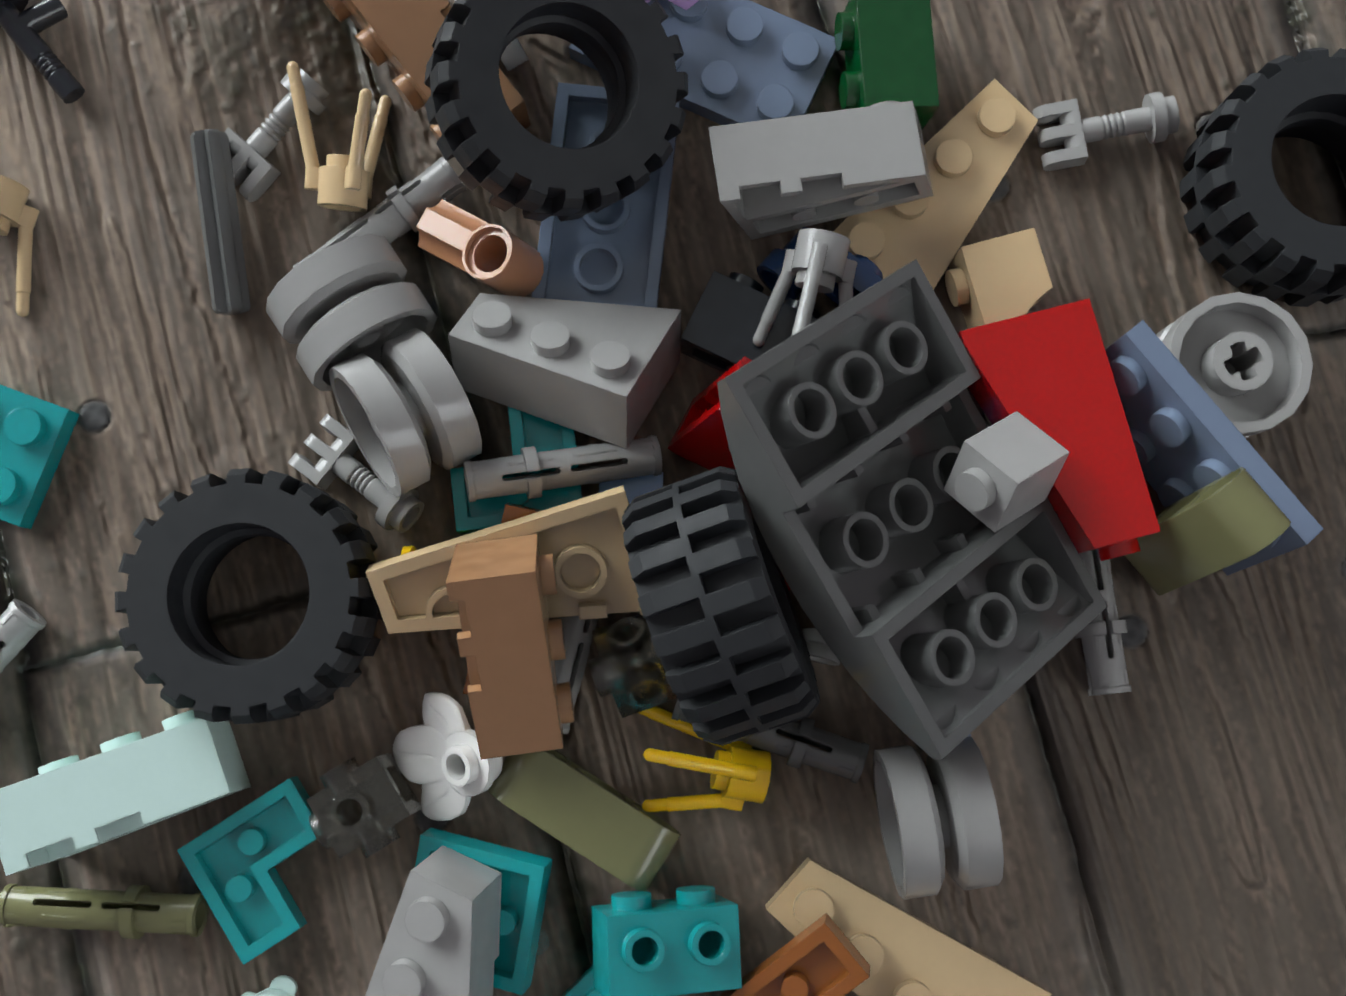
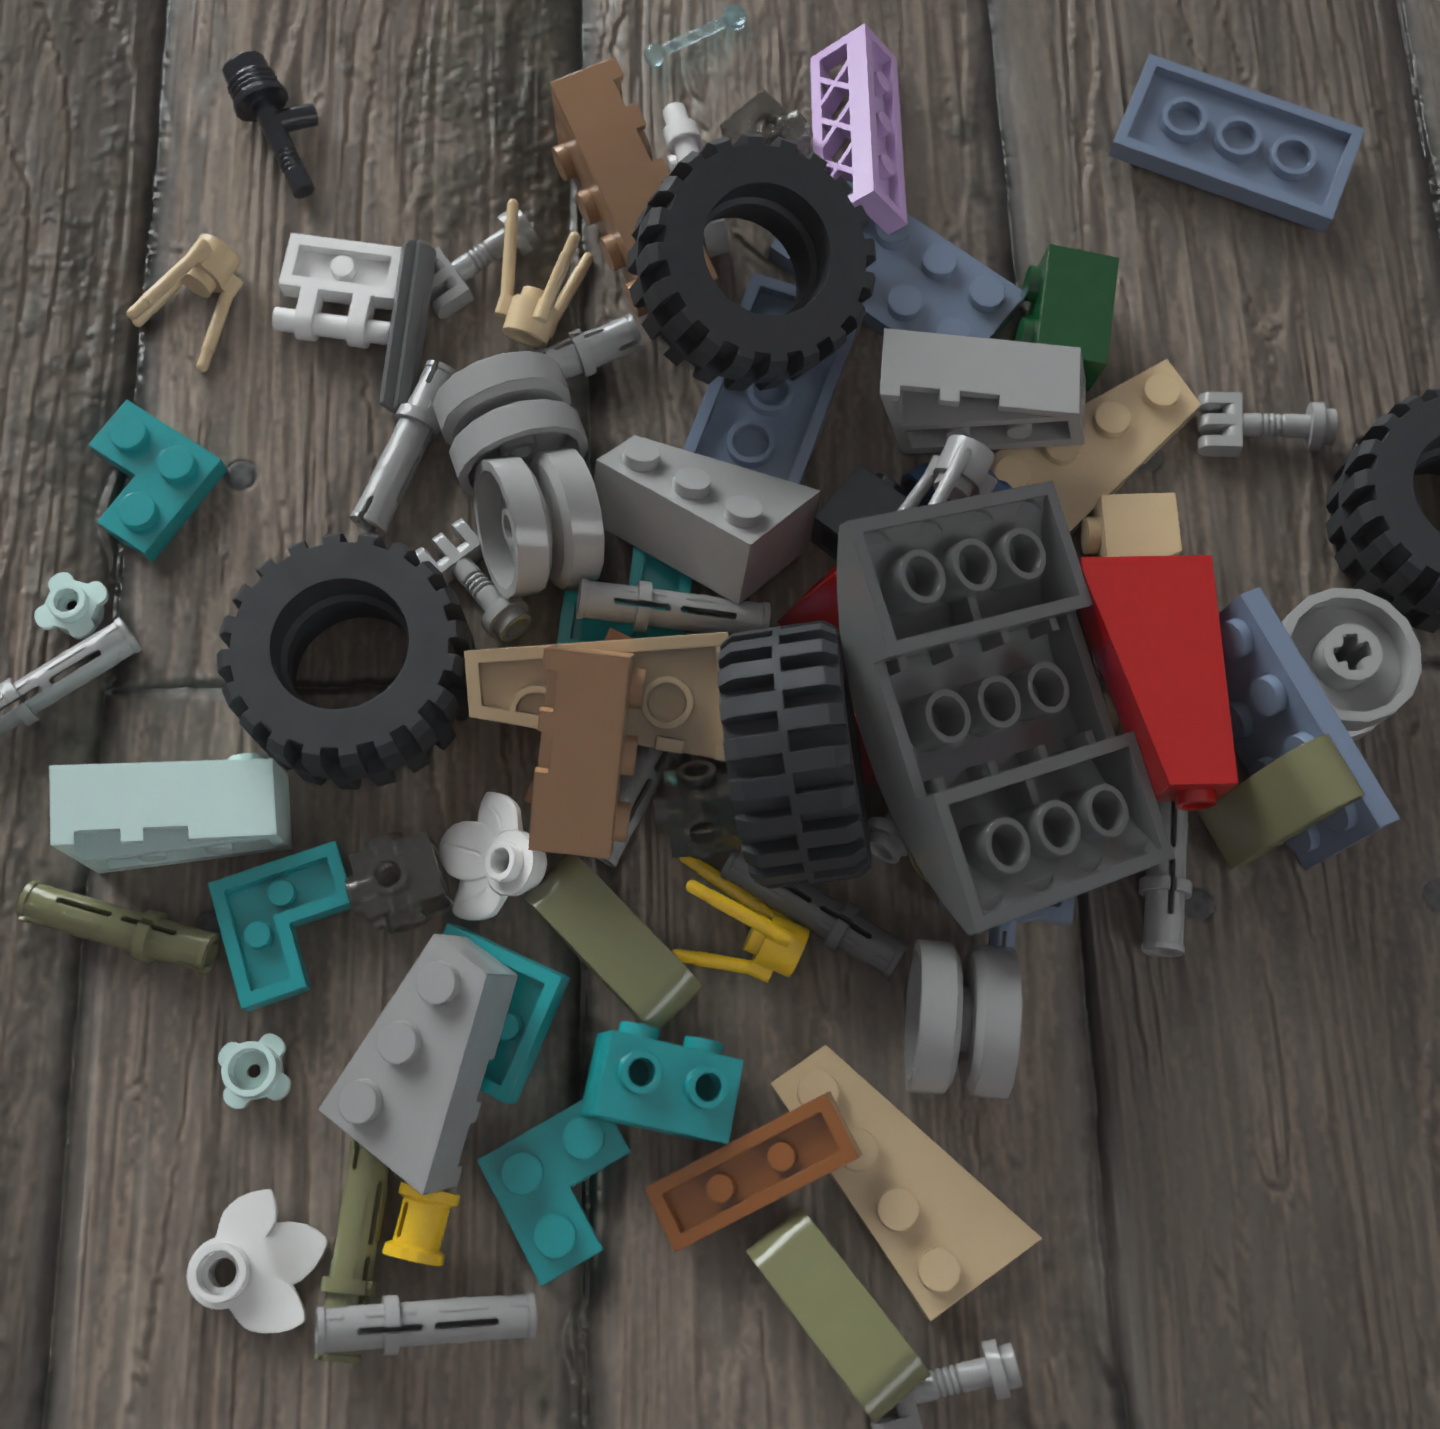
camera: 10 degrees right, 10 degrees down
(134, 179) = (340, 273): none -> white plate
(251, 355) = (402, 454): none -> light grey pin
(480, 249) = (644, 399): nougat piece -> none
(1005, 471) = (1097, 690): light grey brick -> none

